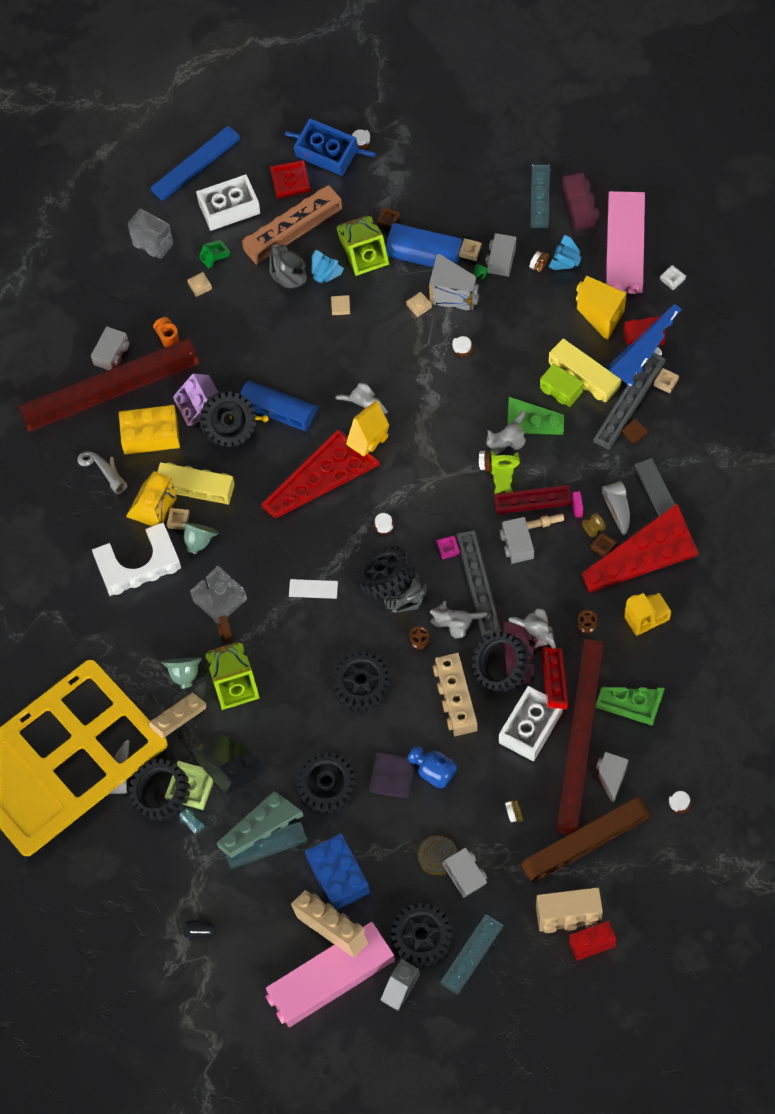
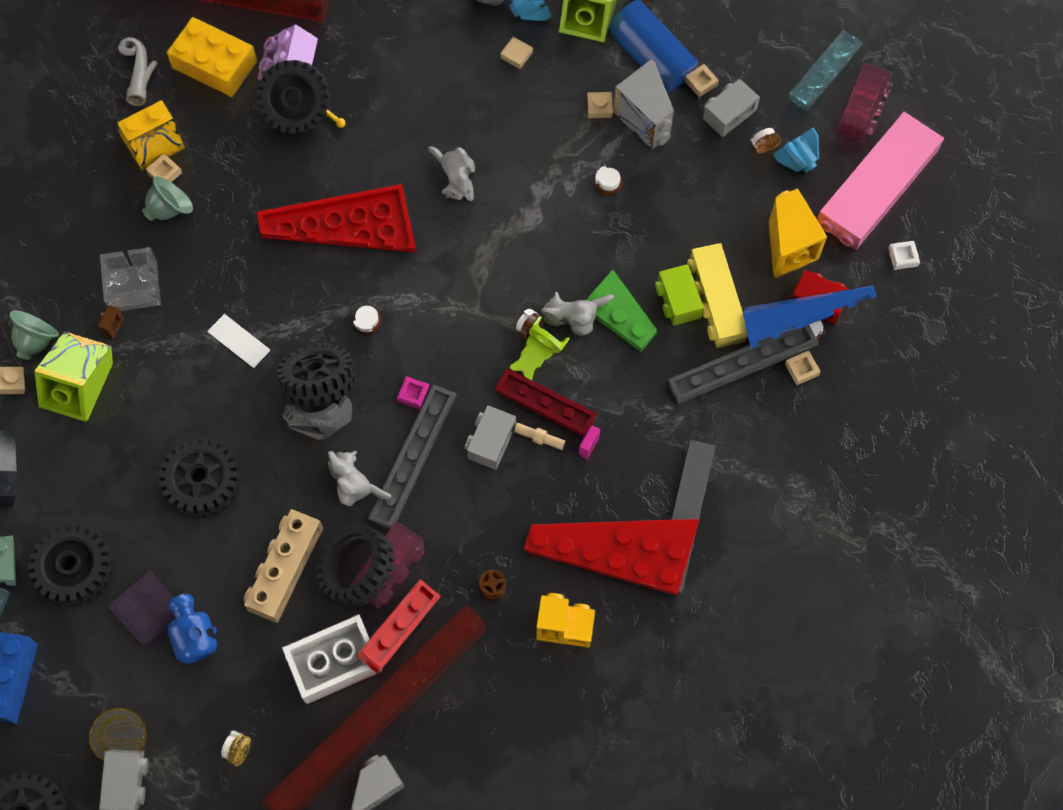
camera: 30 degrees right, 5 degrees up
(119, 578) = (111, 204): white arch -> none
(199, 483) = (211, 144): light yellow brick -> none
(279, 405) = (364, 116): blue brick -> none
(368, 429) = (427, 204): yellow slope -> none
(419, 633) = (296, 468): reddish brown wheel -> none
(480, 271) = (692, 111): green hinge -> none
(537, 626) = (427, 552): light grey animal -> none
(593, 525) = (588, 478): clear yellow wheel -> none
(603, 545) = (583, 508): reddish brown tile -> none
(618, 505) = (635, 475): light grey piece -> none
(631, 703) = (467, 718): bright green wing -> none
(634, 431) = (721, 402): reddish brown tile -> none

